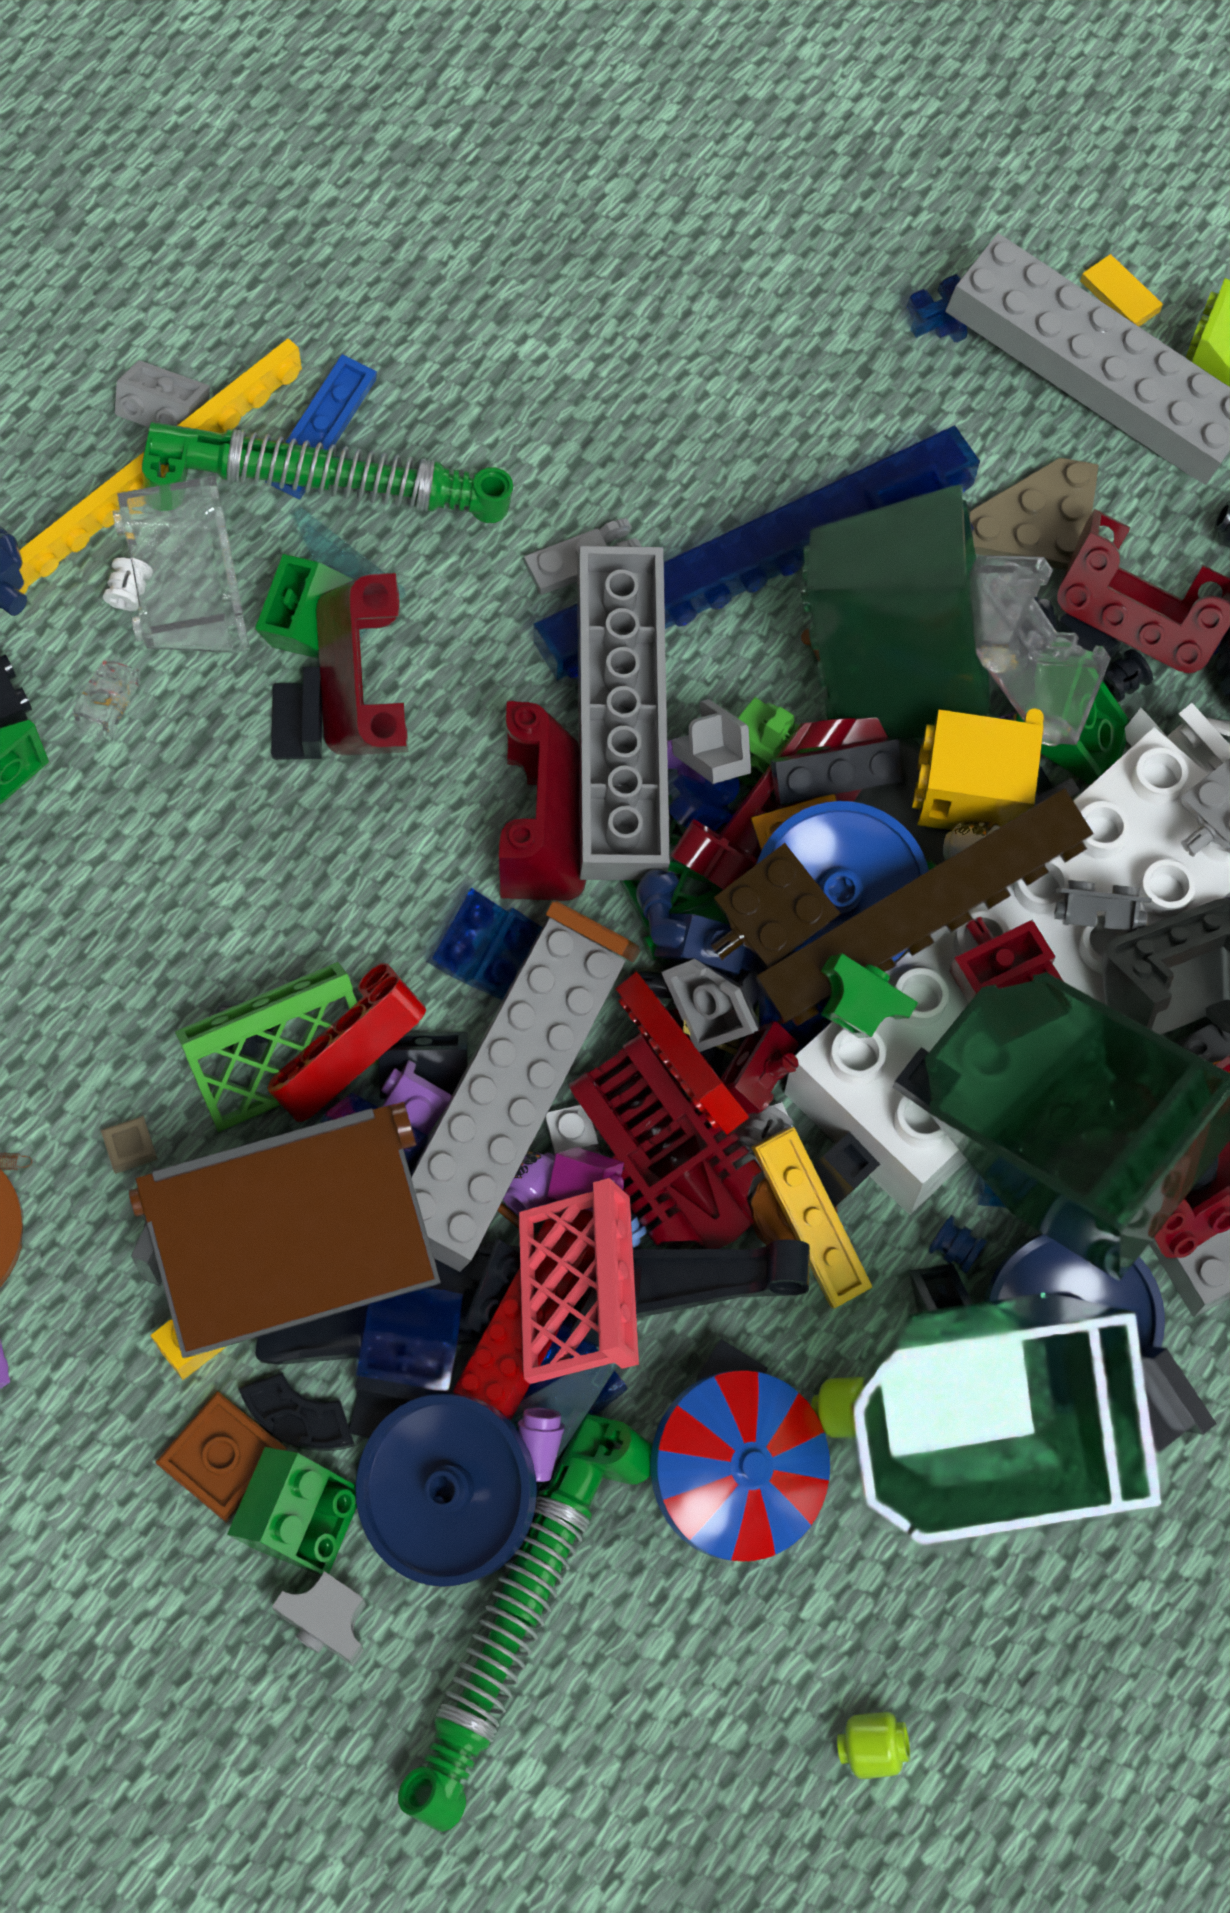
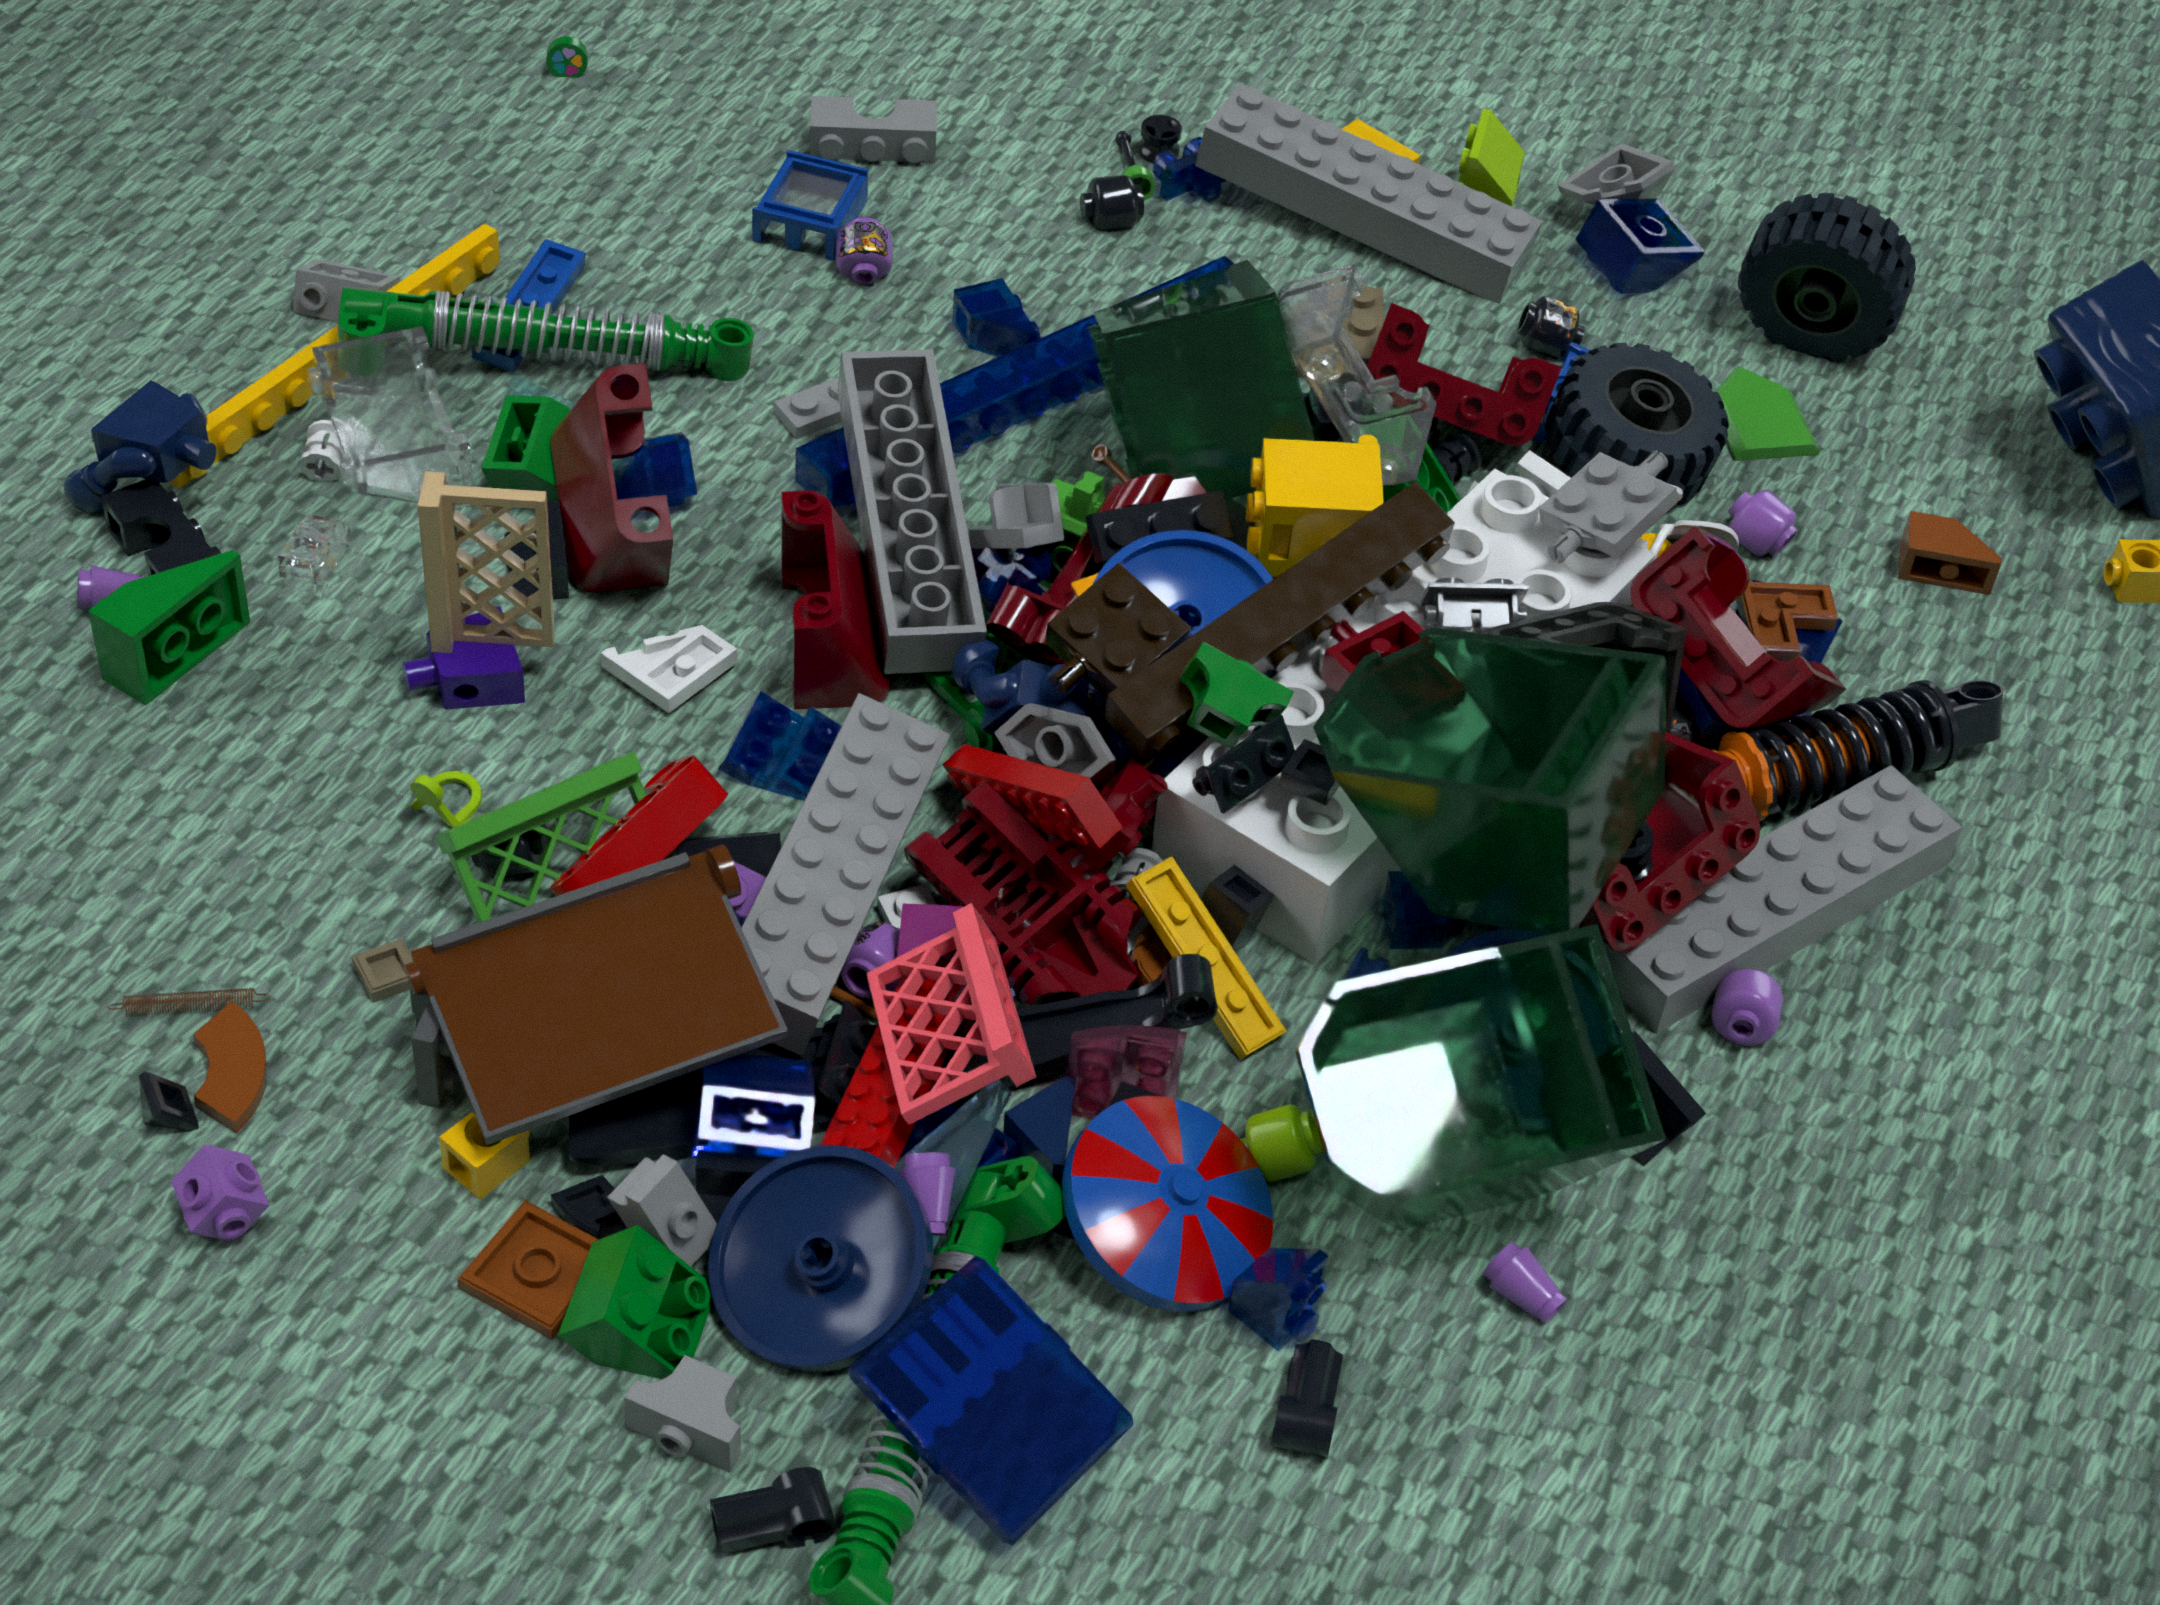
camera: 10 degrees left, 20 degrees down
(176, 976) = (429, 792): none -> lime piece
(205, 780) = (443, 559): none -> tan fence
(227, 831) = (470, 674): none -> dark purple torso
(323, 1431) = (666, 1207): none -> light grey brick
(385, 131) = (567, 57): none -> green tile
(386, 1717) = (788, 1510): none -> black piece
(400, 847) = (672, 666): none -> white wing
(406, 642) = (657, 469): none -> clear blue slope
(566, 1642) = (992, 1399): none -> clear blue piece
(587, 324) = (811, 196): none -> blue window
(593, 931) = (915, 702): dark orange tile -> none
(627, 387) = (864, 250): none -> medium lavender head
(651, 1378) = (1043, 1125): none -> dark blue slope
(681, 250) = (899, 137): none -> light grey arch
(704, 1325) = (1126, 1053): none -> clear pink slope
(733, 479) = (992, 318): none -> clear blue slope
(820, 1562) = (1280, 1294): none -> clear blue slope
(825, 1673) = (1307, 1409): none -> black piece
(863, 344) = (1112, 203): none -> black head
(874, 1745) = (1379, 1478): lime head -> none
(878, 1059) = (1246, 765): none -> black hinge
(888, 310) = (1139, 174): none -> hinge
(917, 258) = (1159, 135): none -> black wheel
(1030, 1566) = (1524, 1282): none -> medium lavender cone

